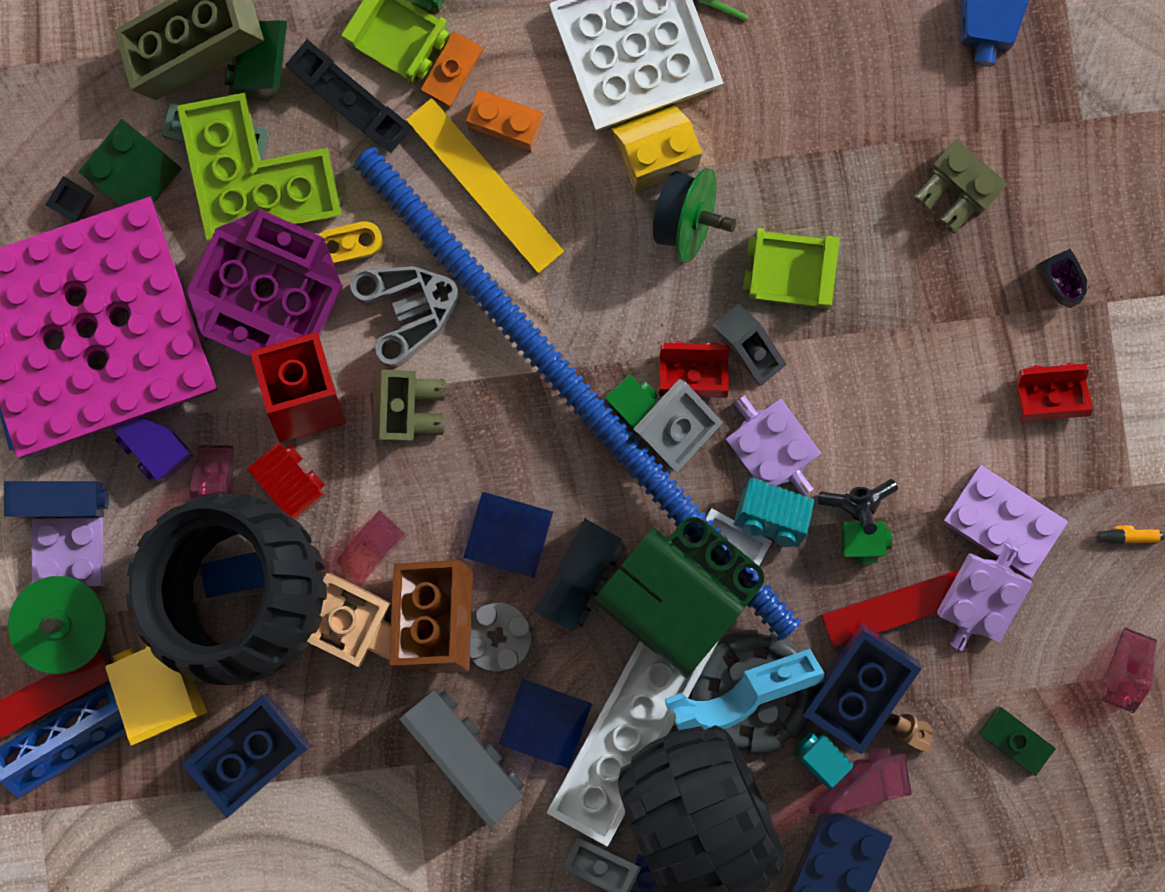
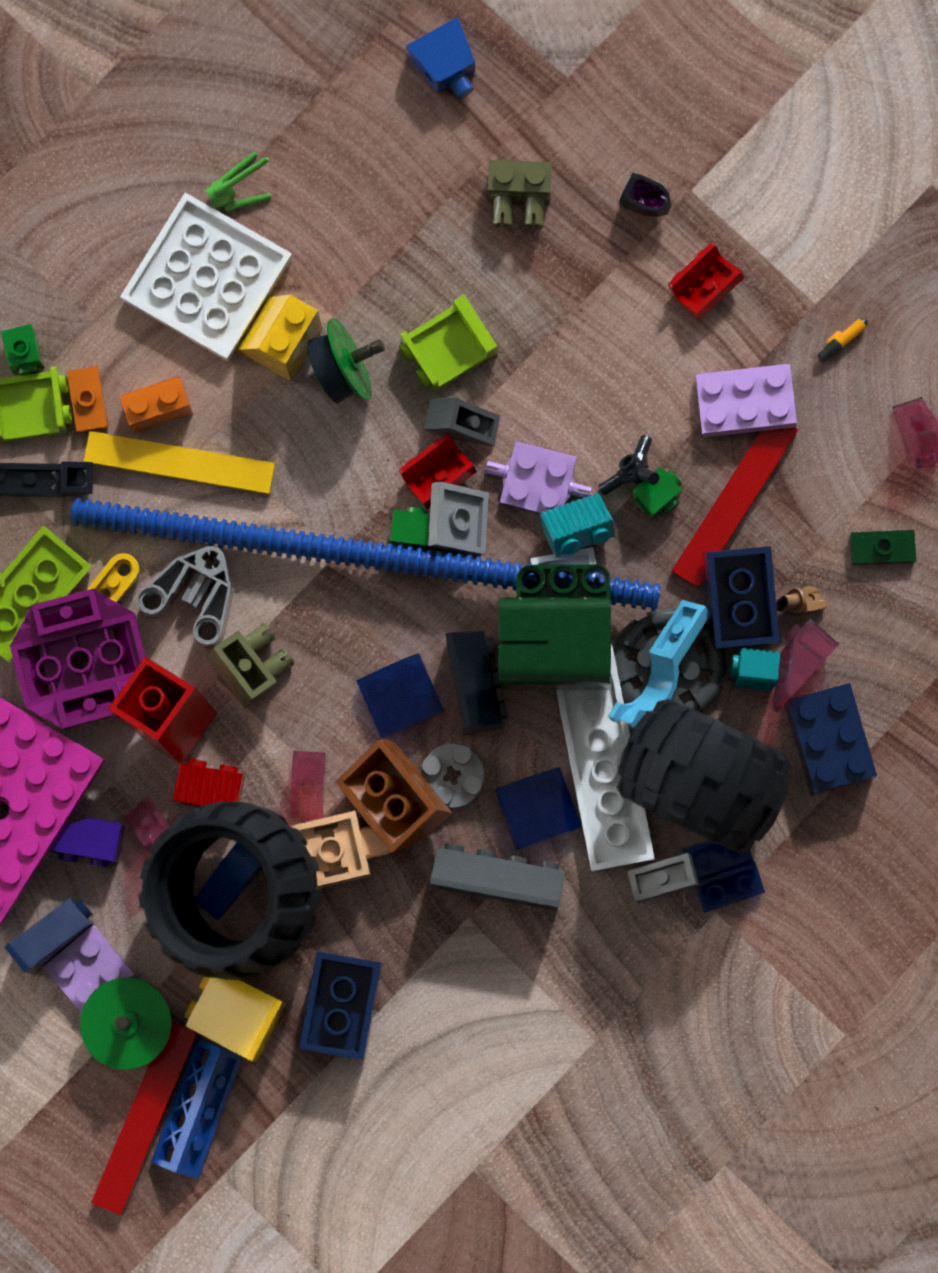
camera: 35 degrees left, 5 degrees down
(984, 597) = (775, 463): lavender plate -> none

